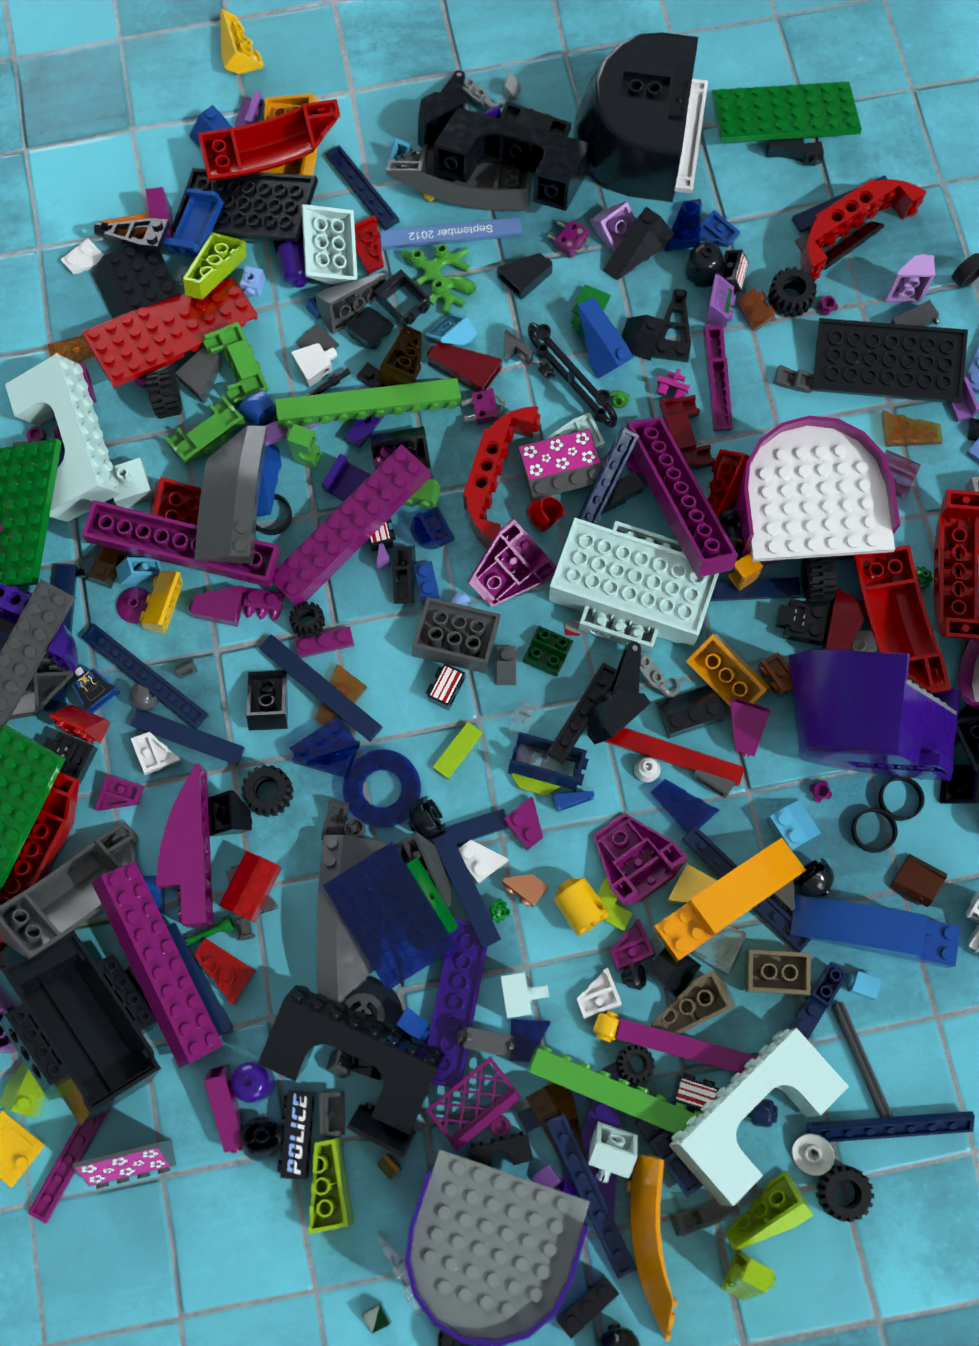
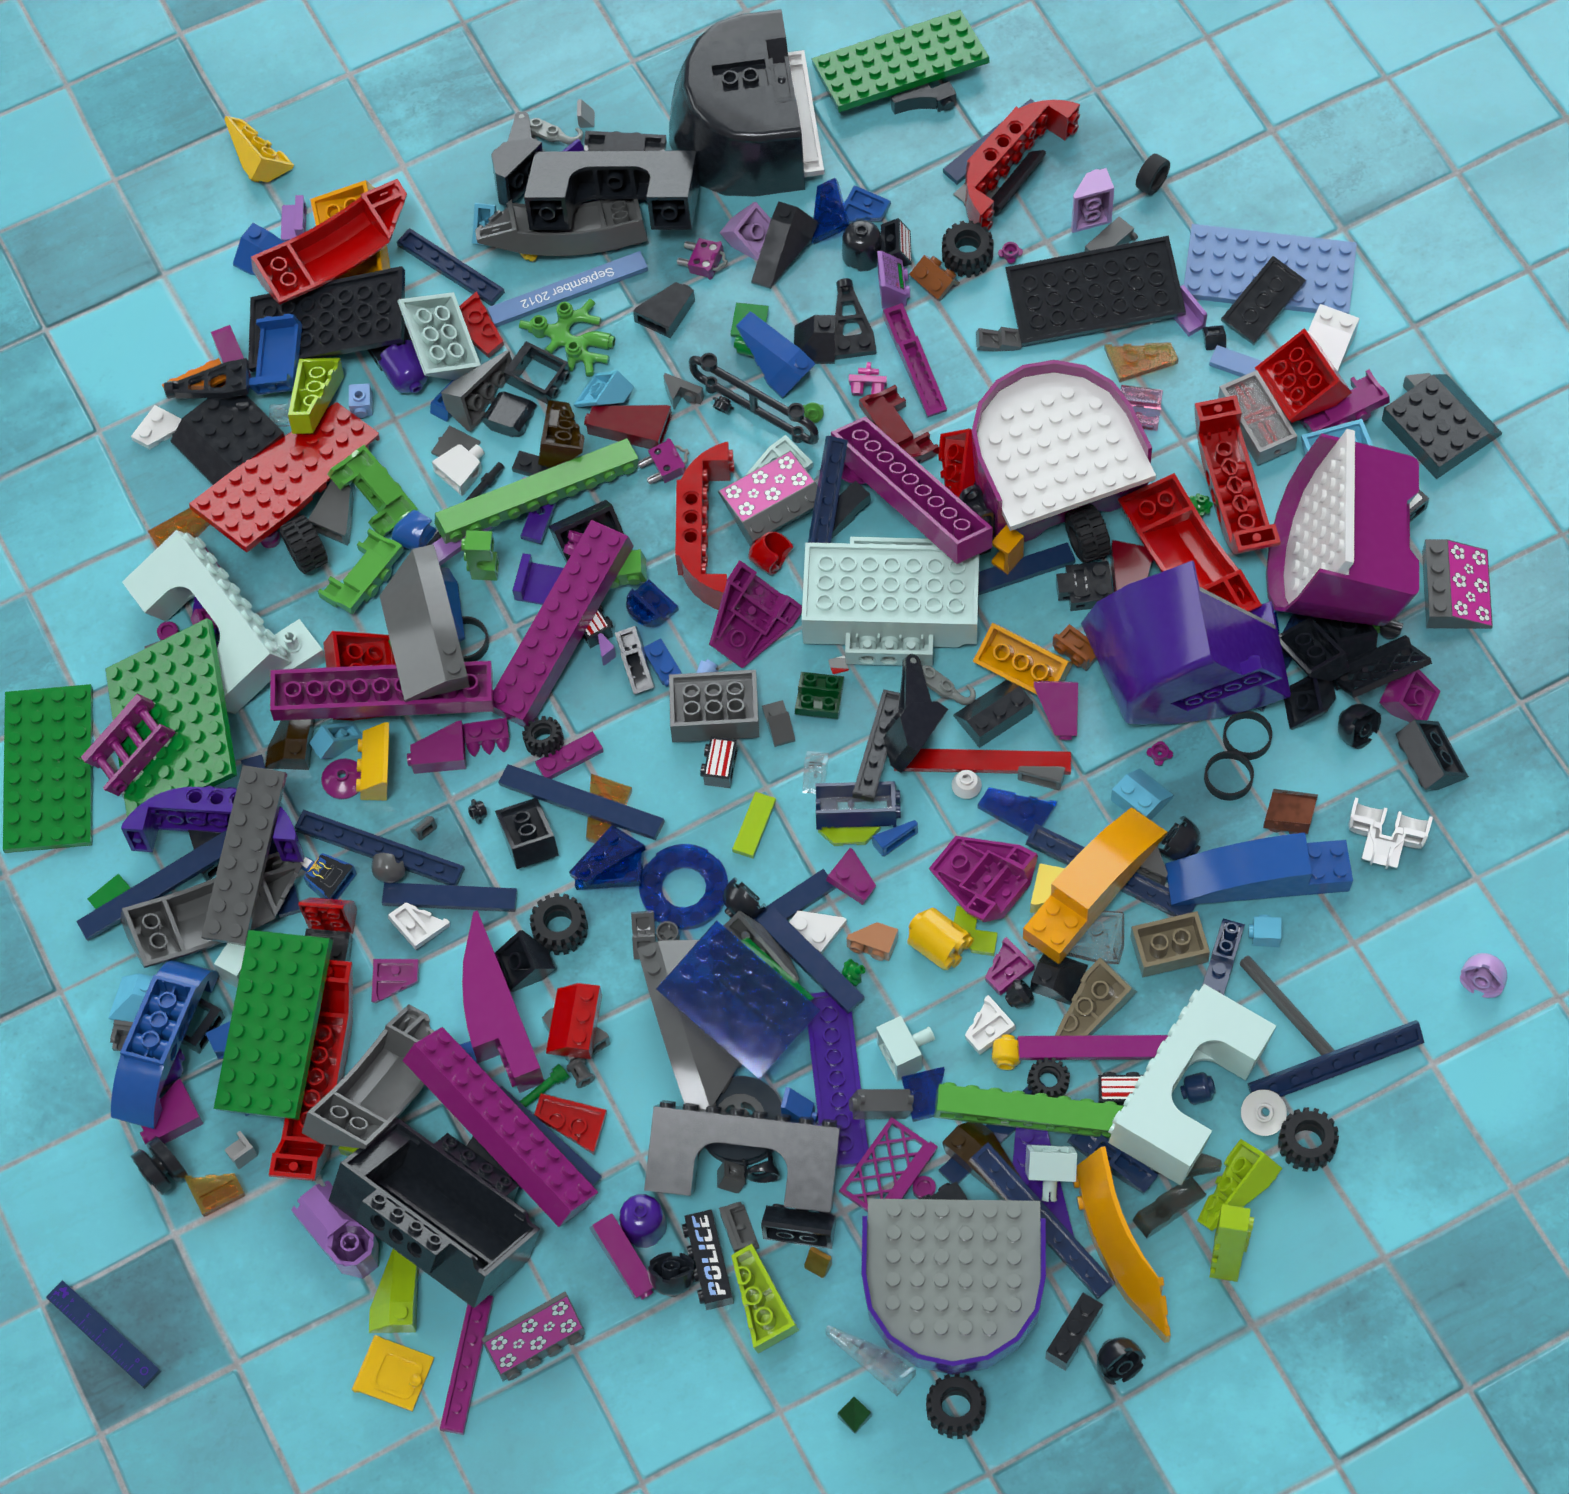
camera: 15 degrees left, 10 degrees down
(233, 668) = (477, 811): none -> black plate

